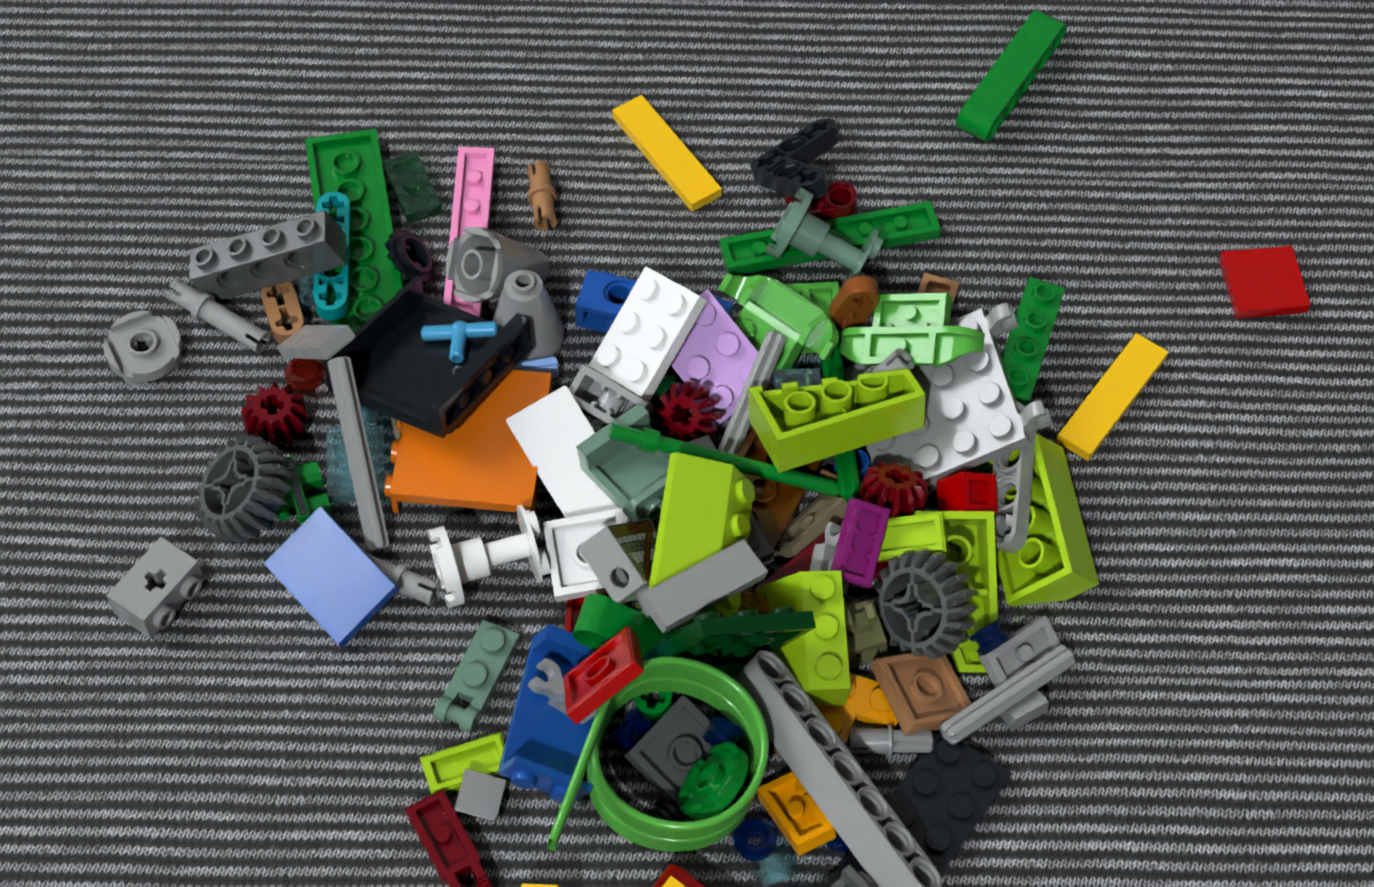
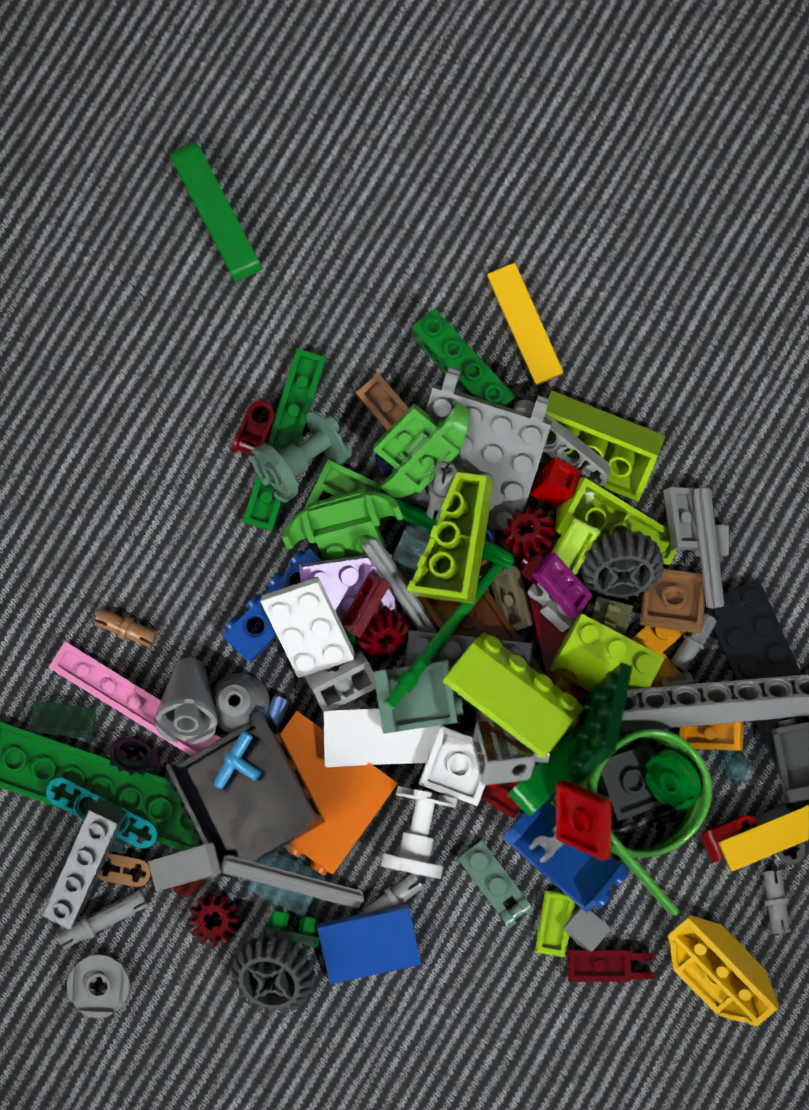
camera: 55 degrees left, 25 degrees up
(156, 588) = (312, 1085): light grey brick -> none
(667, 153) = (135, 512): yellow tile -> none
(703, 586) = (560, 720): light grey tile -> none
(707, 371) = (365, 604): none -> dark red plate
(723, 732) = (640, 752): clear blue bush -> none
(756, 828) = (719, 765): clear blue plate -> none
(785, 165) = (208, 437): black beam -> none
(854, 302) = (368, 468): dark orange beam -> none
(989, 636) = (664, 534): clear blue bush -> none
(1264, 282) = (495, 152): red tile -> none

